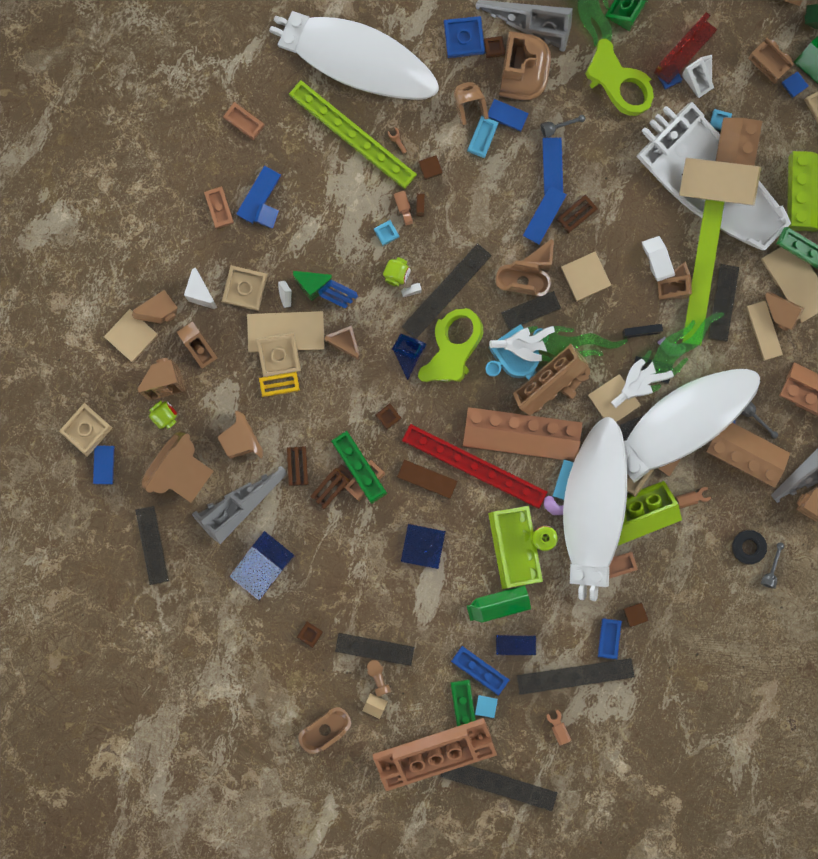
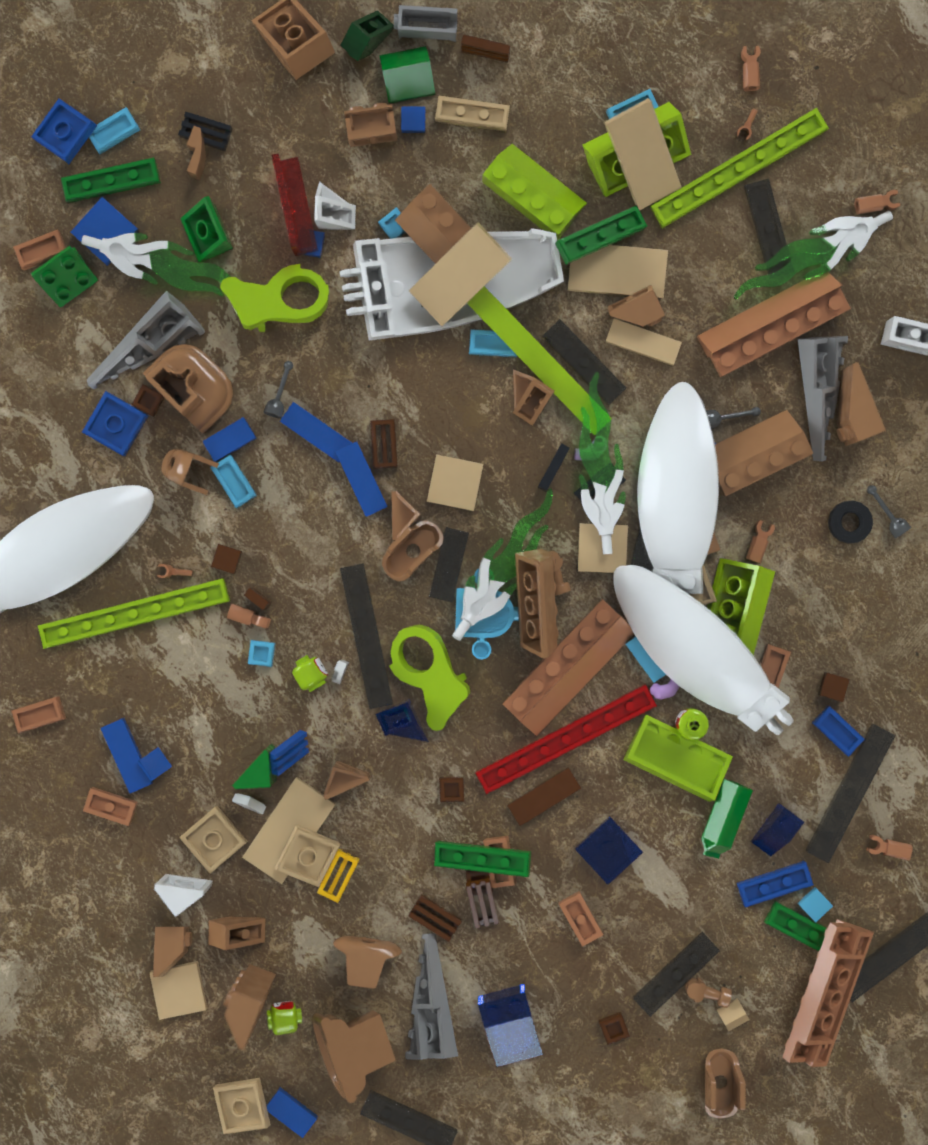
camera: 55 degrees left, 5 degrees up
(366, 559) = (580, 918): none -> nougat plate
(659, 258) = (491, 395): white slope -> none
(689, 234) = (488, 344): none -> medium azure tile

